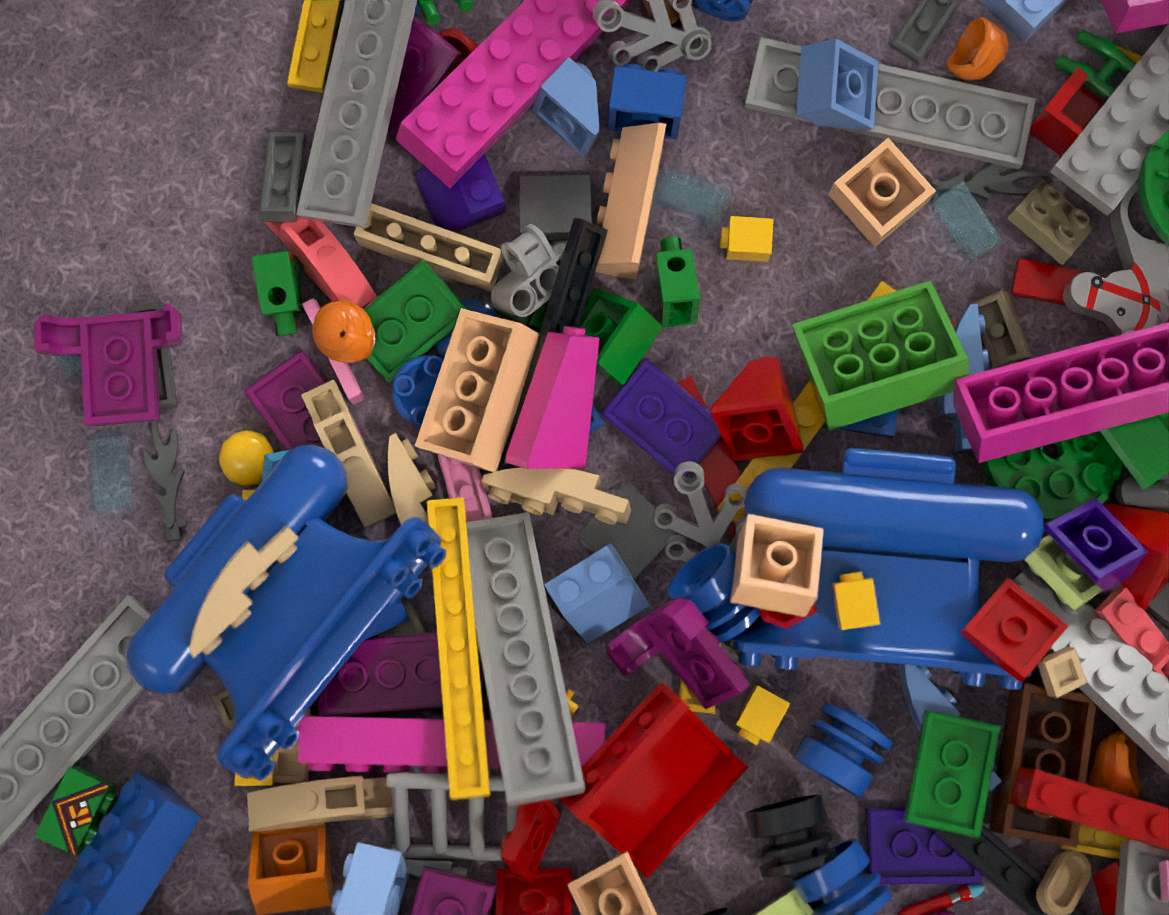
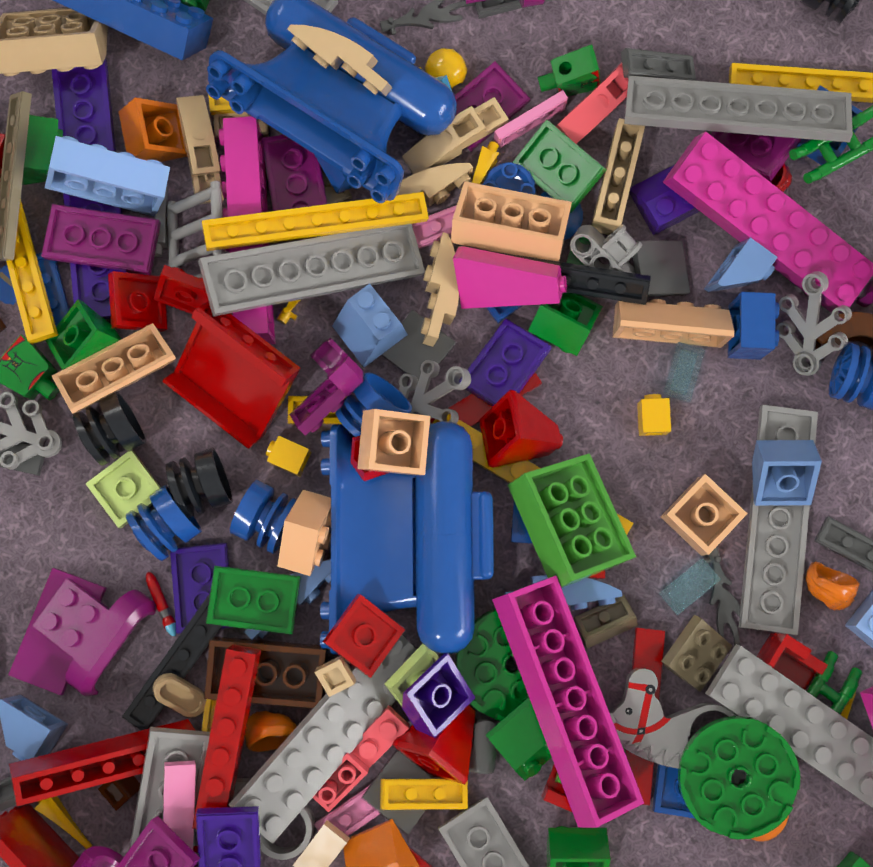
camera: 85 degrees right, 0 degrees up
(343, 332) = (543, 119): orange hair -> none
(384, 417) = (486, 162): none -> yellow piece
(676, 284) = (610, 362): green torso -> none
(855, 601) = (374, 509): yellow brick -> none
(872, 693) = (306, 533): none -> light nougat brick

